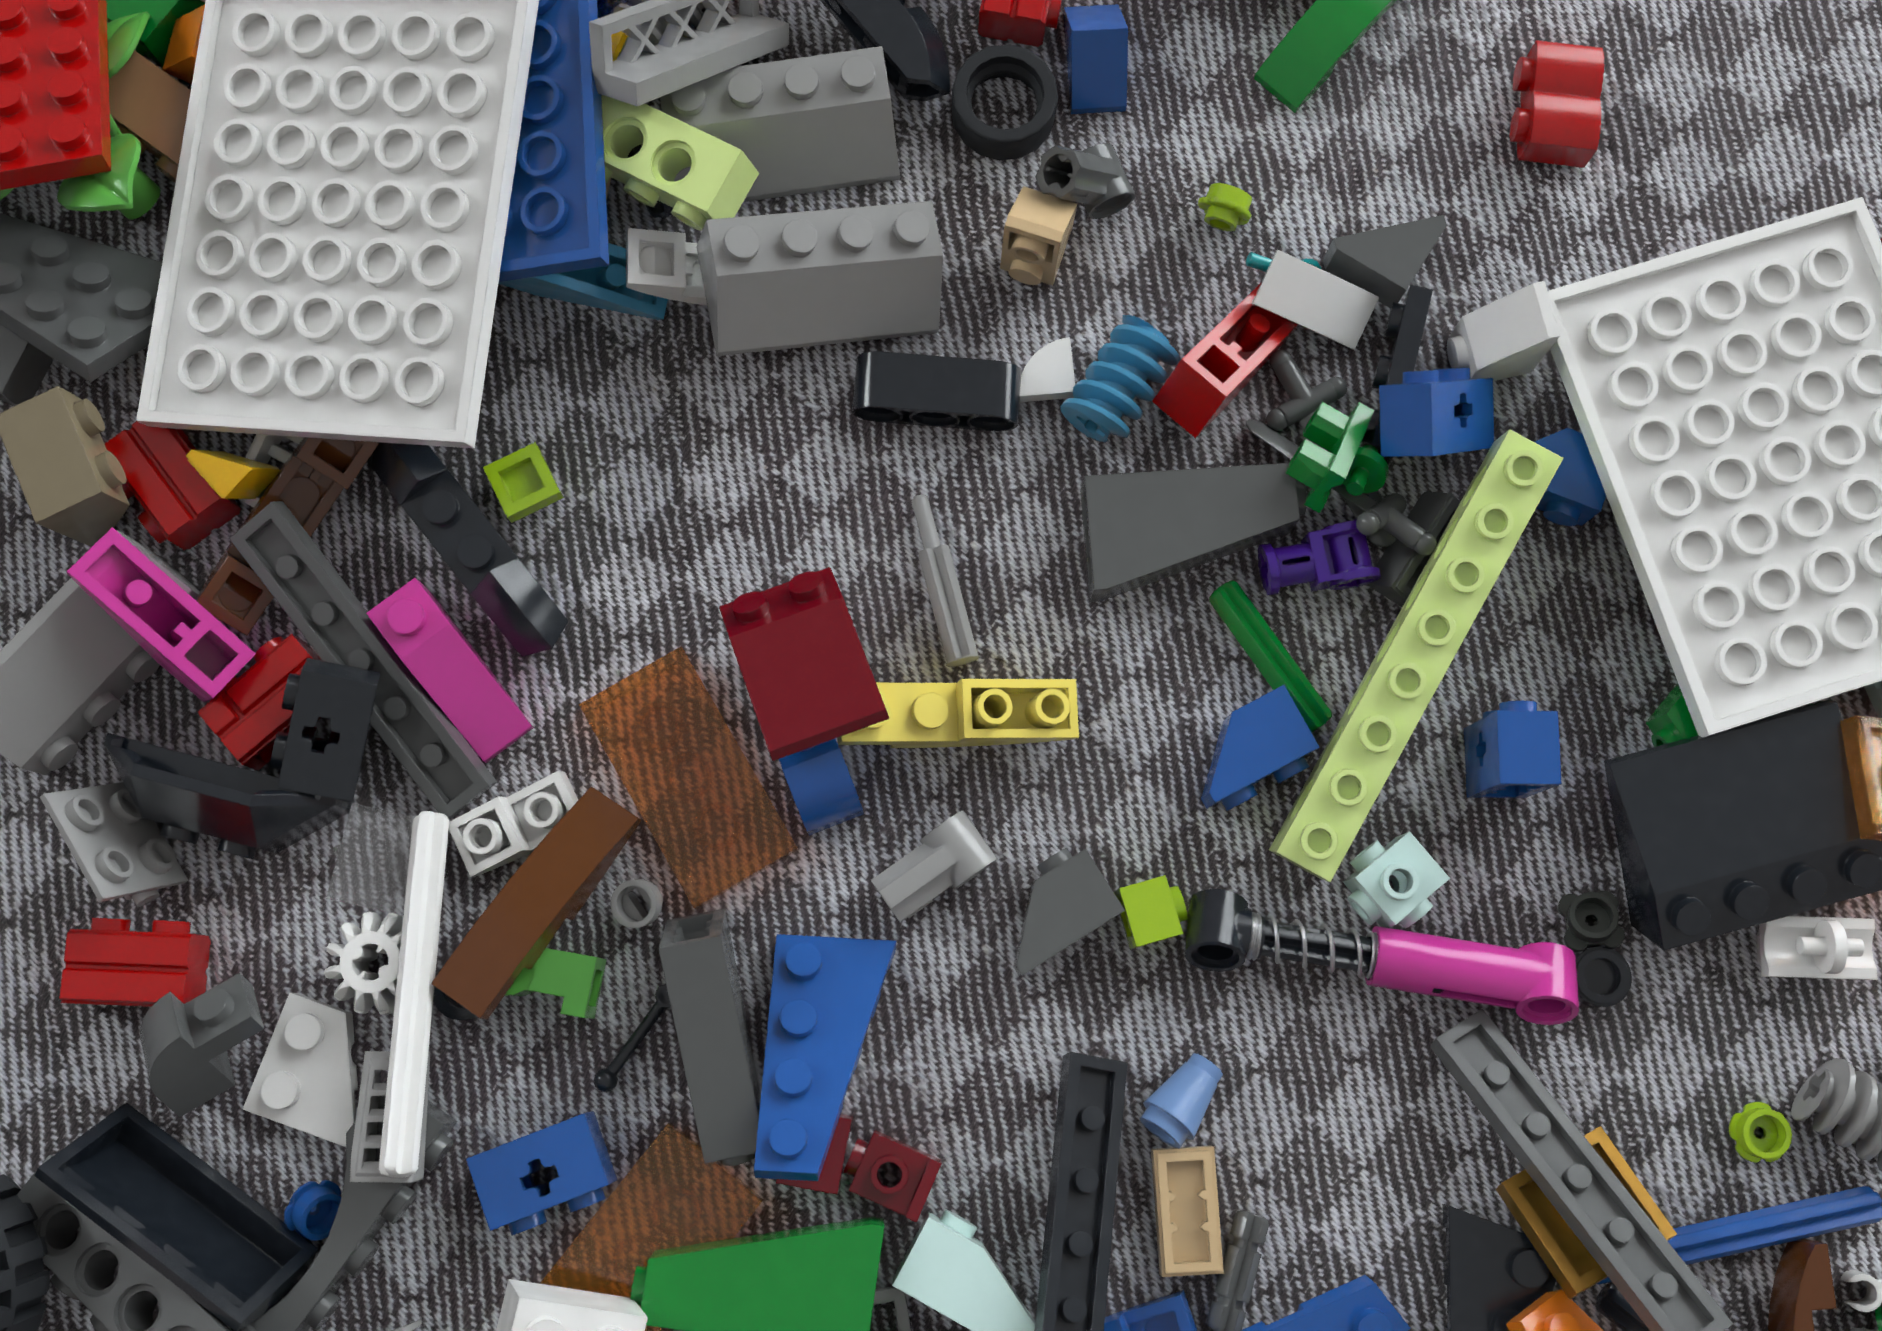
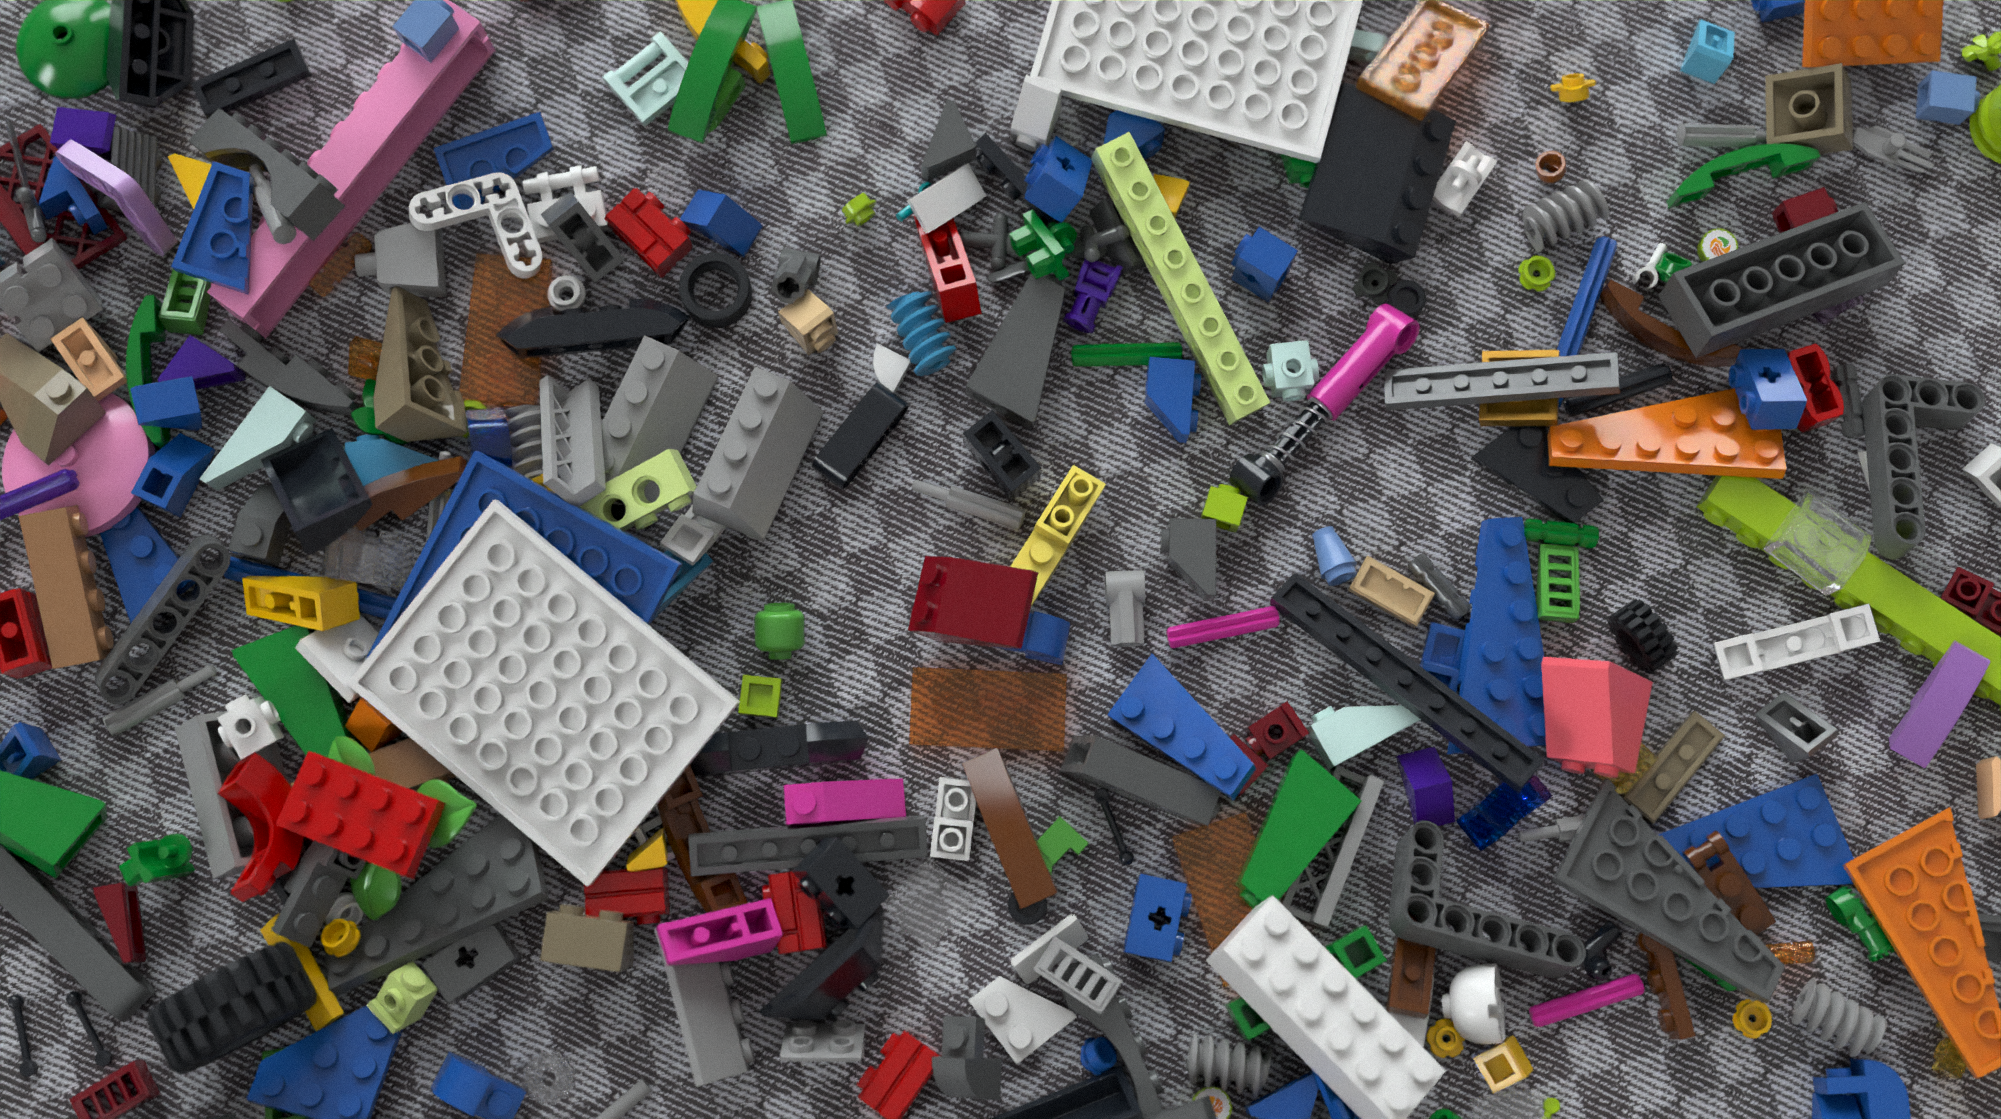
camera: 55 degrees left, 0 degrees up
(354, 962) = (996, 935): white gear -> none
(414, 997) = (1018, 922): white axle -> none
(451, 1064) = (1067, 930): none -> white slope
(621, 450) = (779, 630): none -> bright green head
(629, 910) = (1042, 787): light grey hinge -> none
(992, 1013) = (1222, 627): none -> dark pink axle
(1025, 579) = (1002, 455): none -> black brick
(1522, 577) = (1173, 191): none -> yellow slope

